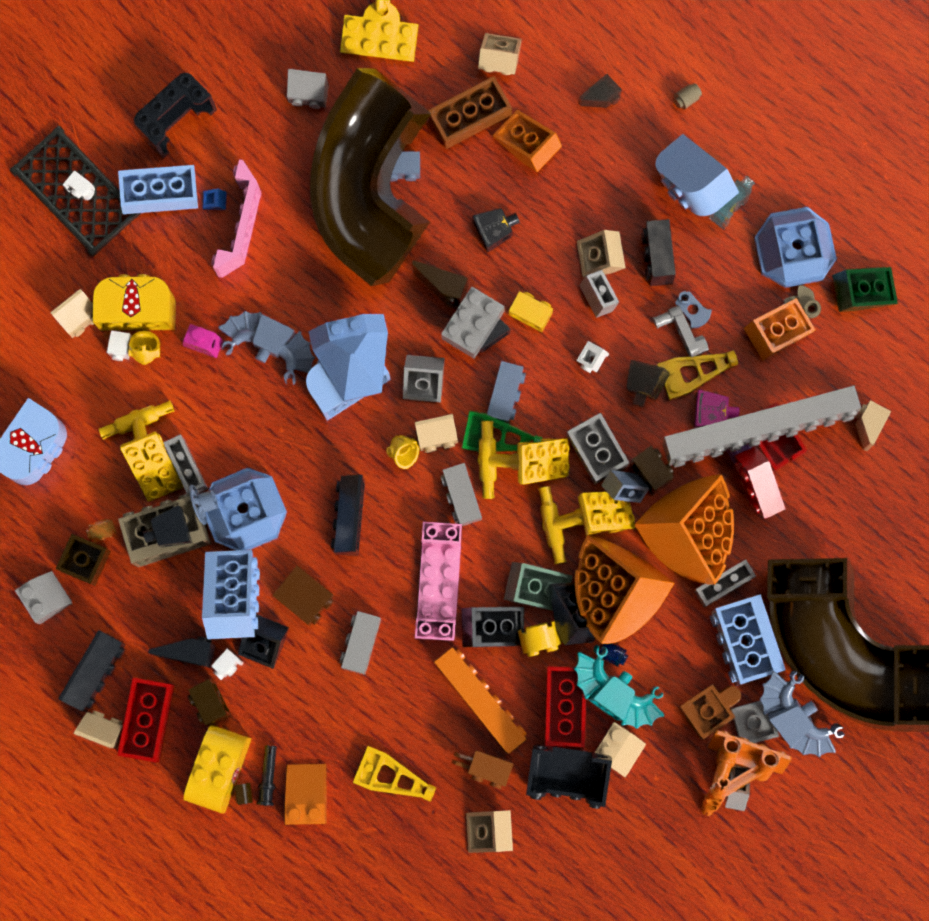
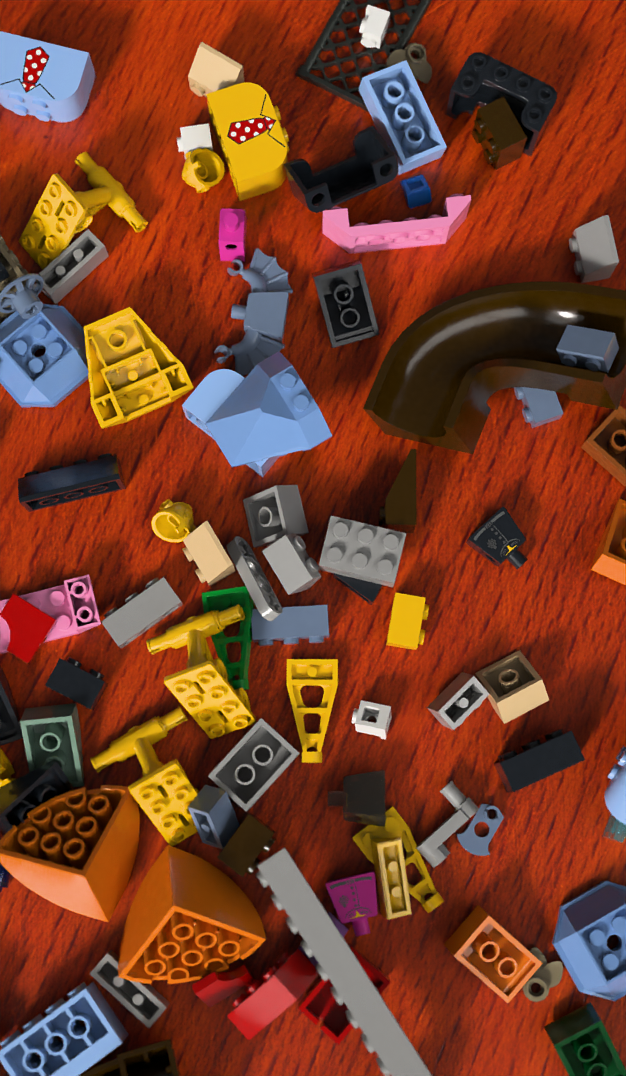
camera: 65 degrees right, 0 degrees up
(110, 175) = (420, 67): none -> dark tan plate
(192, 243) = (368, 169): none -> black windscreen
(195, 125) = (498, 133): none -> dark brown brick
(280, 444) = (130, 369): none -> yellow wedge
(282, 277) = (345, 303): none -> black slope
(382, 117) = (587, 348): none -> sand blue brick
(445, 578) = (27, 627): none -> red tile
(464, 373) = (292, 563): none -> light grey slope
(466, 405) = (254, 578): none -> light grey beam
(497, 557) = (76, 683): none -> black brick
(545, 389) = (312, 673): none -> yellow plate
(706, 380) = (391, 877): none -> yellow slope
(741, 519) = (218, 986): none -> red tile

